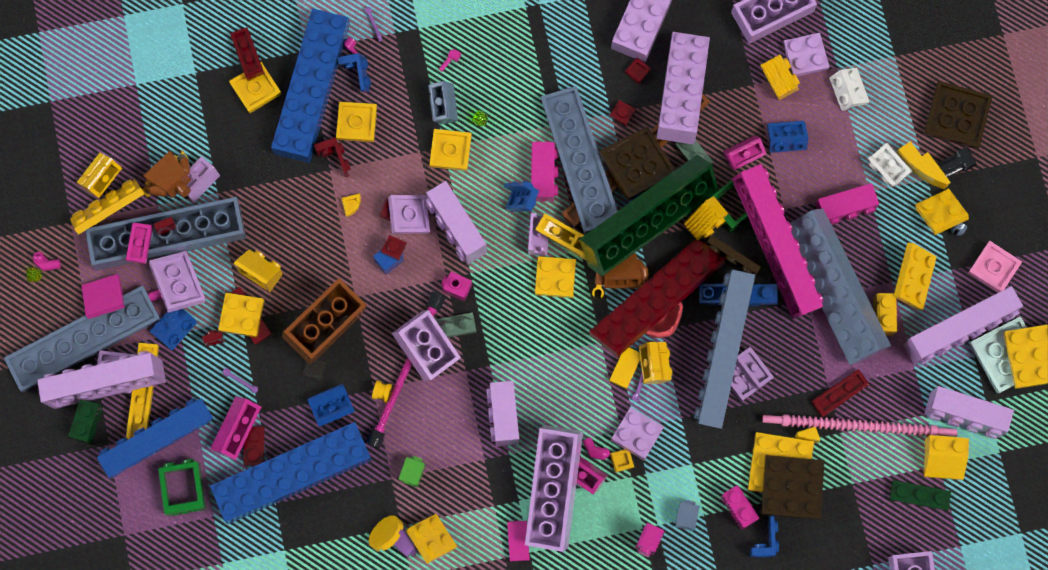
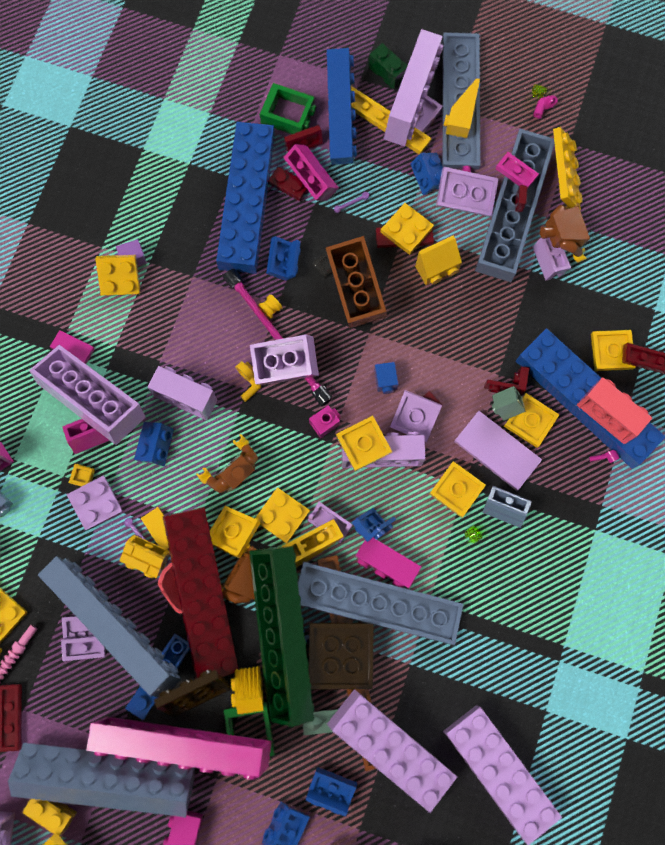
camera: 120 degrees right, 0 degrees up
(99, 175) = (599, 179): yellow brick -> none
(103, 296) = (488, 130): dark pink tile -> none
(104, 324) = (461, 113): none -> yellow slope
(199, 452) = (310, 137): none -> dark red plate
(213, 338) = (401, 197): dark red plate -> none
(319, 54) = (614, 410): none -> coral brick
(351, 204) = (455, 374): yellow tile -> none
(354, 145) = (508, 403): none -> sand green brick
(358, 59) = (584, 453): blue bracket -> none
(368, 10) = (637, 492): medium lavender hinge -> none
(385, 533) = (146, 240): yellow tile -> none
(394, 247) = (390, 382): dark red plate -> none
(397, 136) = (498, 450): none -> lavender tile
(412, 471) = (185, 292): bright green brick -> none
(452, 376) = (246, 372): none -> yellow plate
(453, 55) = (550, 546): dark pink hand -> none
(457, 325) = (291, 402): sand green tile -> none
(463, 233) = (364, 443): none -> yellow plate
(544, 332) = (235, 471): none -> dark orange torso
(561, 415) = (154, 443): none -> blue bracket
(592, 304) = (233, 531): none -> yellow plate
(595, 452) = (103, 456): dark pink arm -> none
(622, 113) = (403, 675): dark red plate -> none
(638, 70) = (438, 718): dark red tile -> none
(740, 118) = (331, 791): none -> blue bracket
(744, 152) = (295, 775): dark pink slope -> none

